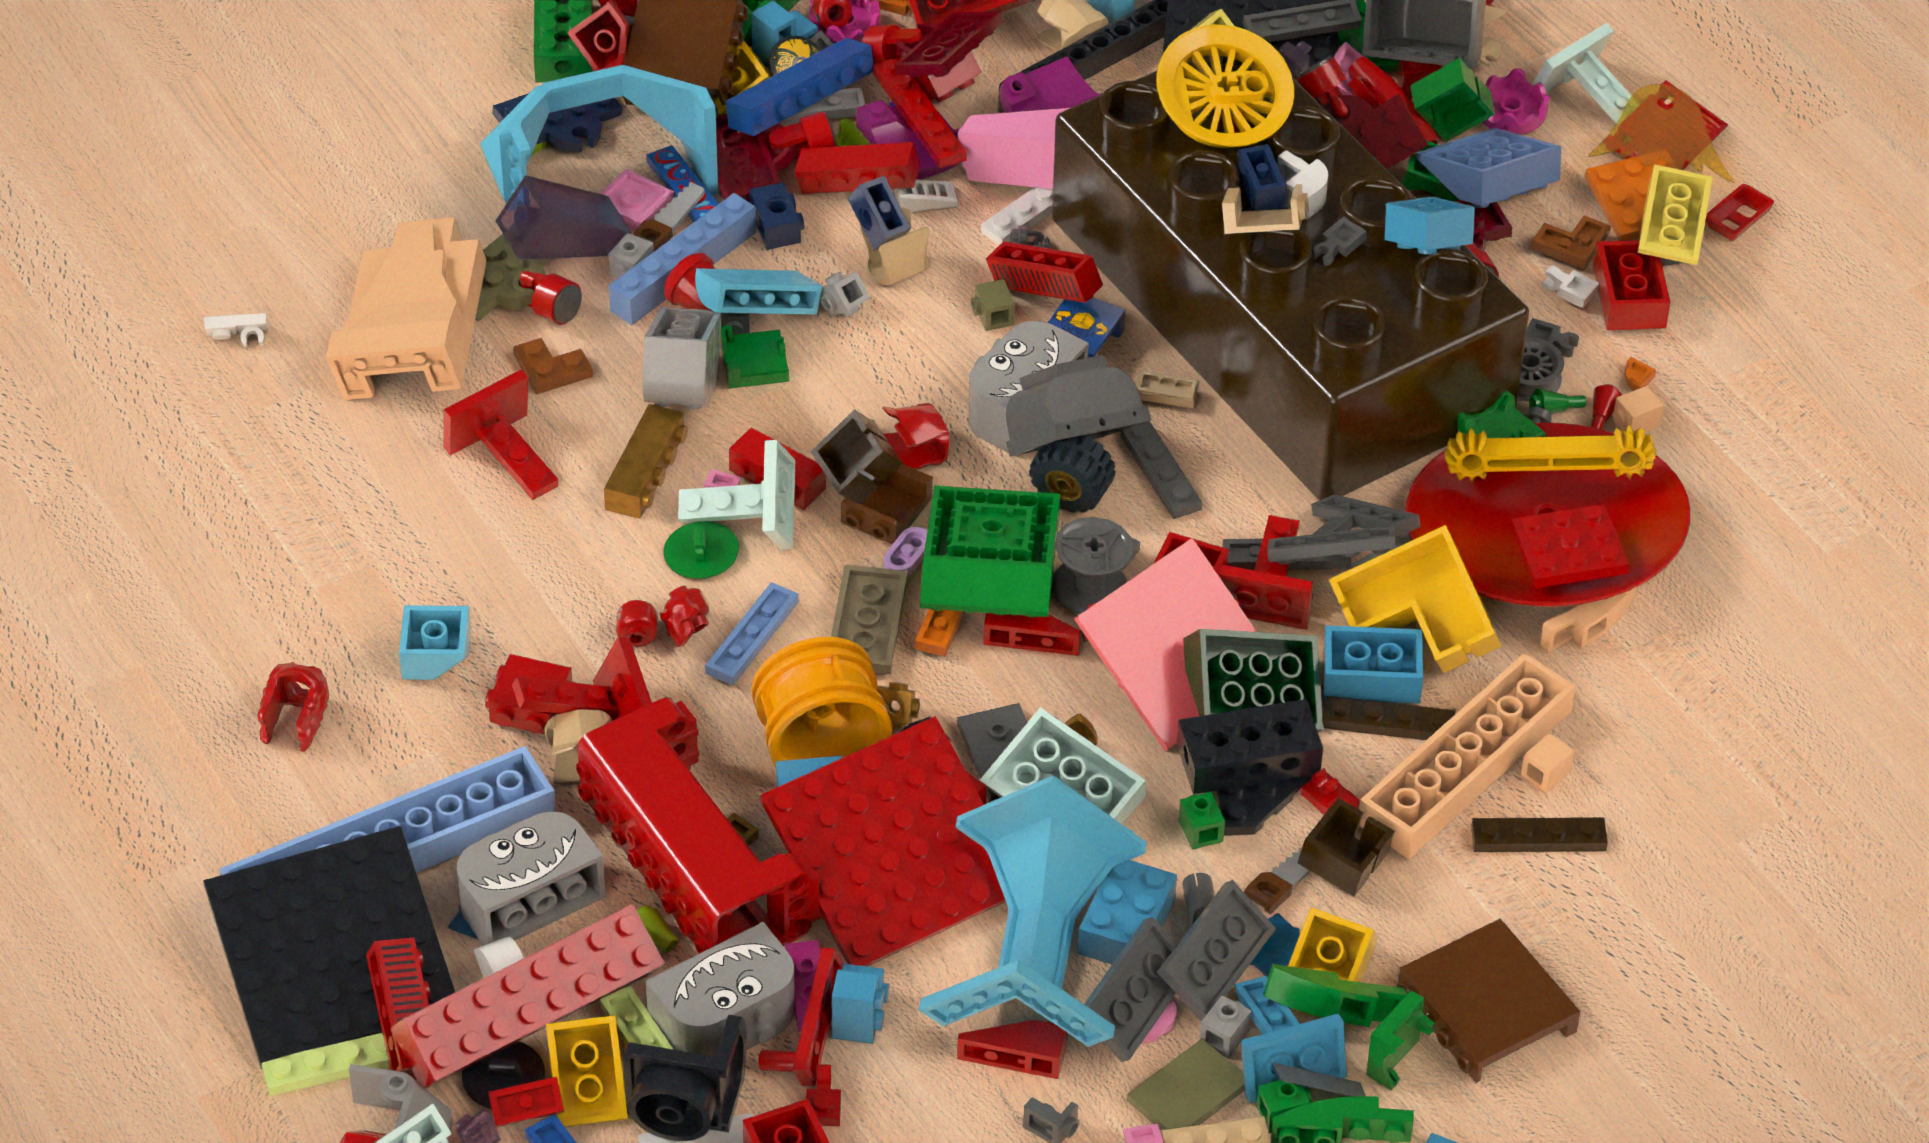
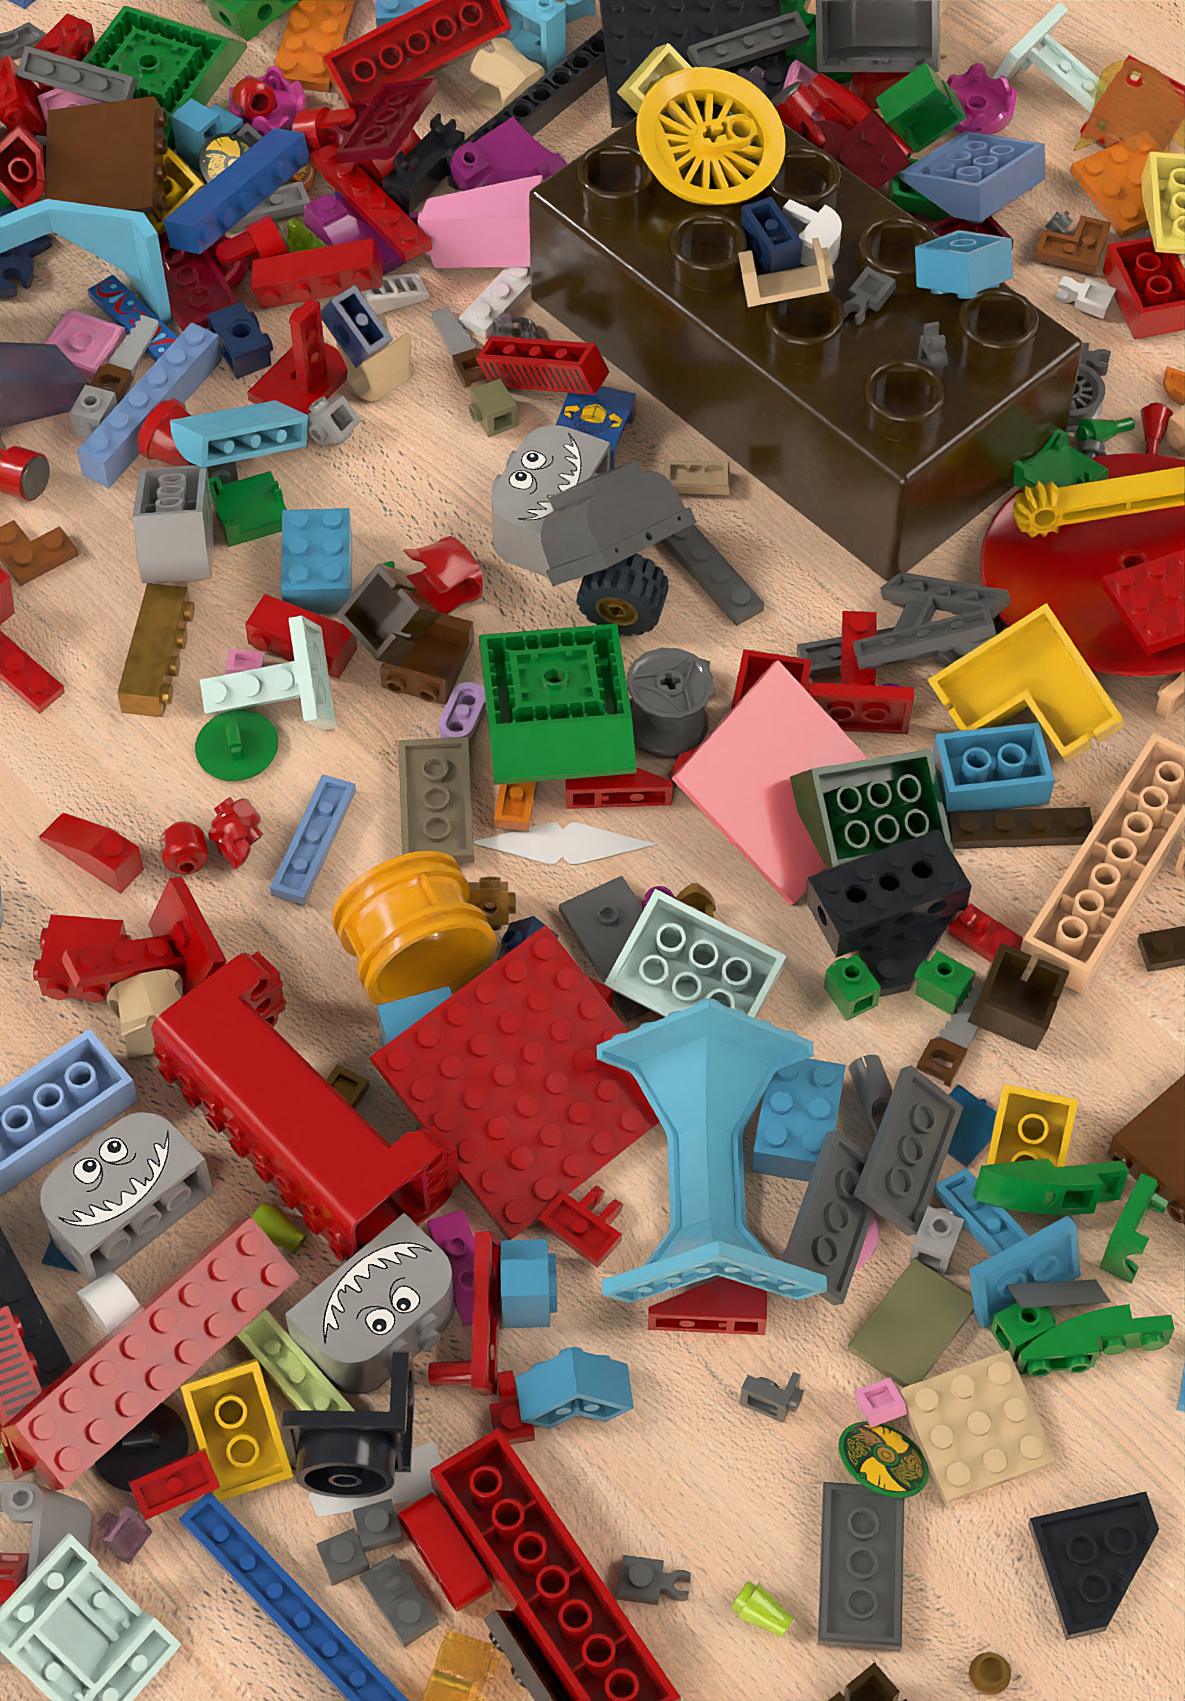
camera: 10 degrees left, 10 degrees up
(560, 614) = (95, 850): none -> red slope
(805, 404) = (317, 559): none -> dark azure brick
(833, 246) = (307, 369): none -> red piece
(867, 84) = (306, 175): none -> orange tile
(883, 1081) = (574, 1386): none -> dark azure brick
(916, 966) = (582, 1229): none -> red hinge
(964, 669) = (575, 843): none -> white sticker
(974, 90) = (423, 166): none -> black brick
(975, 249) = (459, 346): none -> piece
(1284, 828) = (943, 982): none -> green brick
(1383, 294) = (932, 348): none -> dark grey plate
(1562, 219) = (1059, 223): none -> dark grey plate

